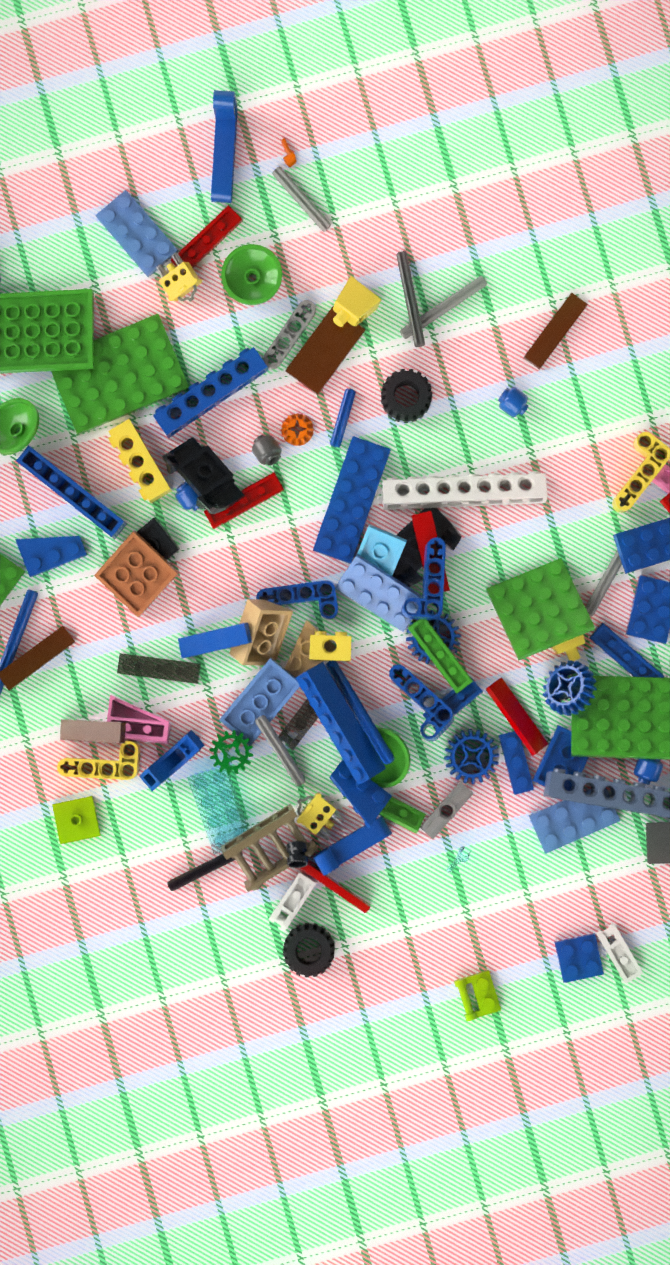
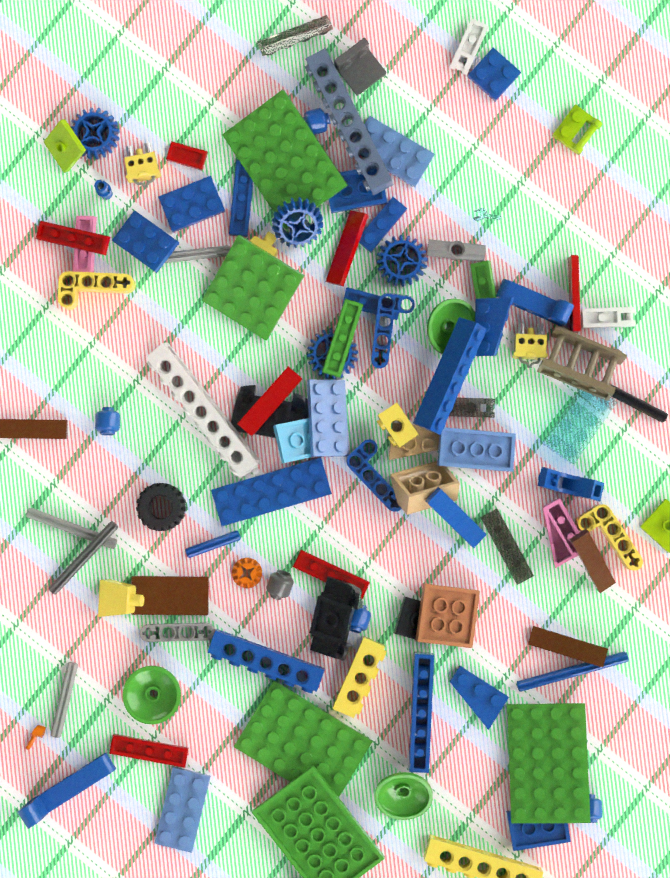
camera: 125 degrees left, 0 degrees up
(184, 284) = (200, 744): light yellow piece -> none
(236, 743) = (539, 443): green gear -> none
(280, 750) = (502, 407): light grey axle -> none
(297, 854) = (572, 337): black wheel -> none
(303, 967) = (643, 264): black tyre -> none
(360, 712) = (430, 367): blue axle -> none
(429, 578) = (291, 387): blue beam -> none

